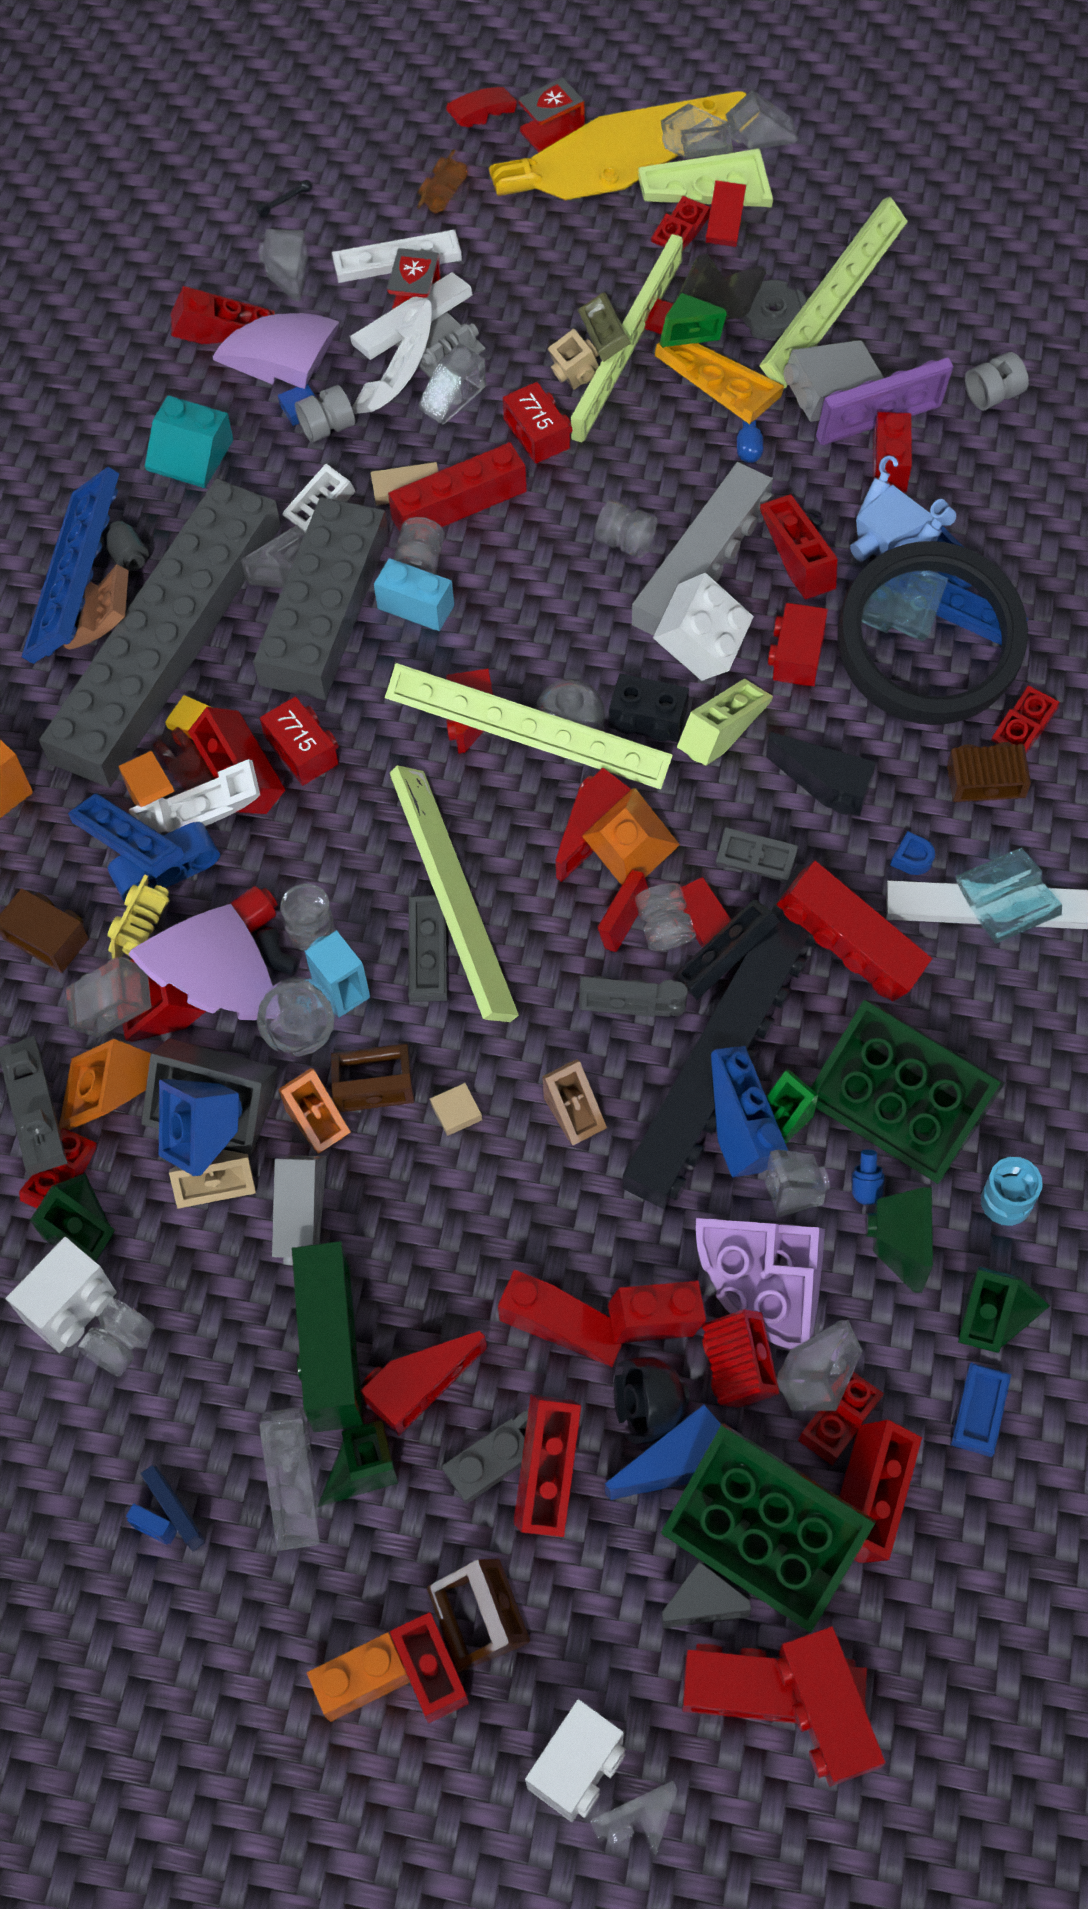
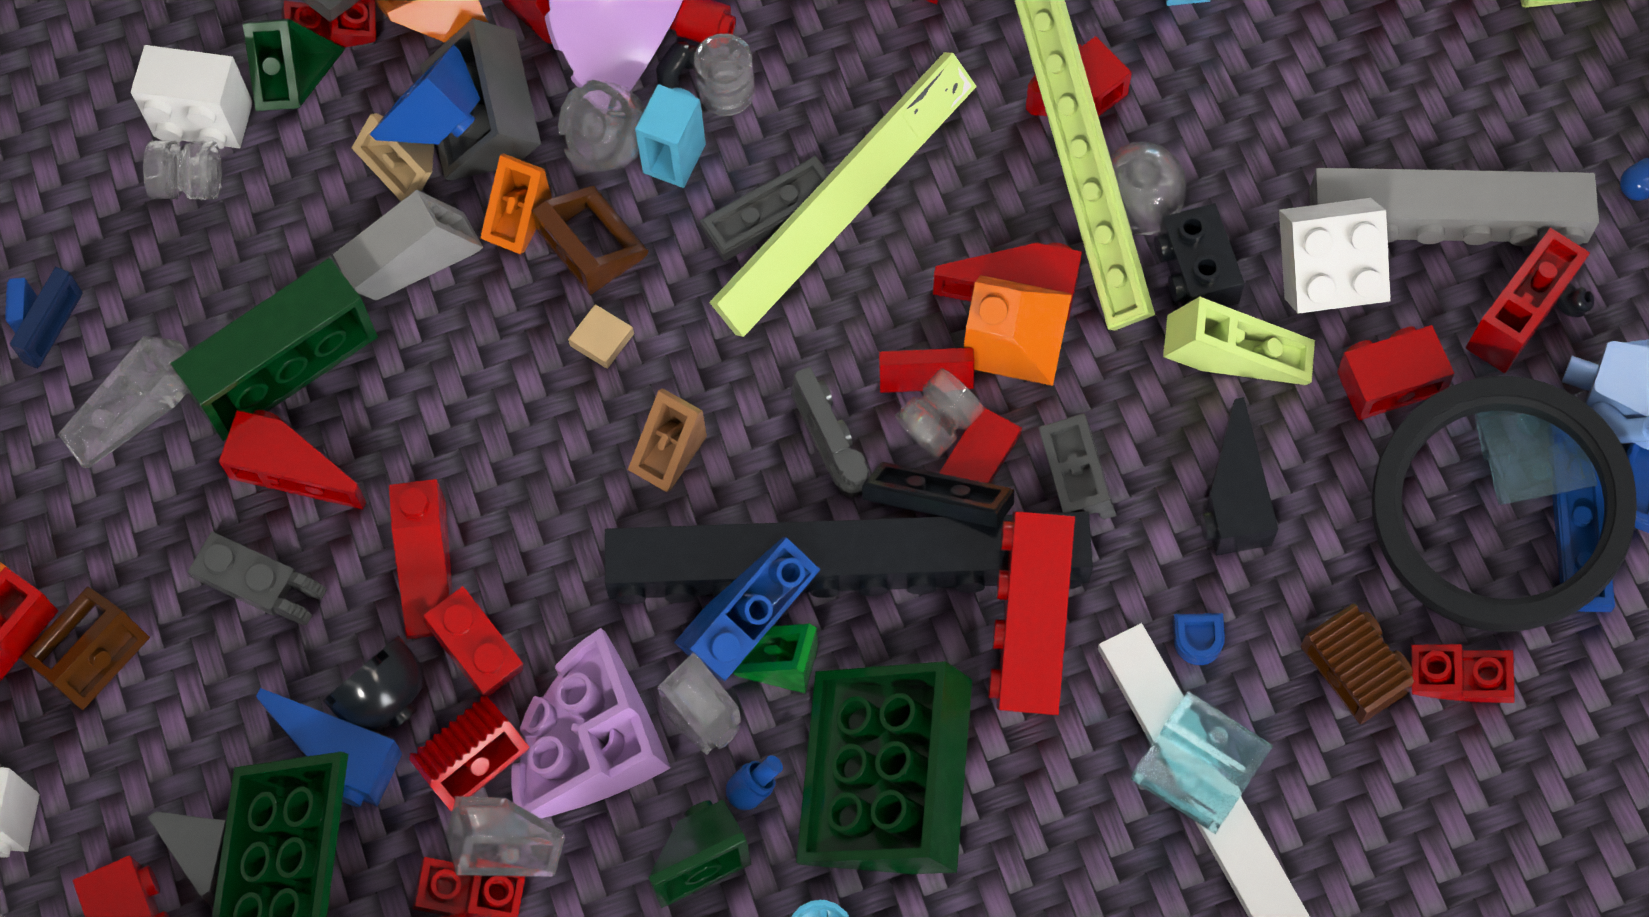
camera: 60 degrees right, 5 degrees up
(360, 1465) = (181, 459): dark green slope -> none
(547, 1465) = (247, 621): red brick -> none
(622, 527) = (1422, 110): clear wheel -> none

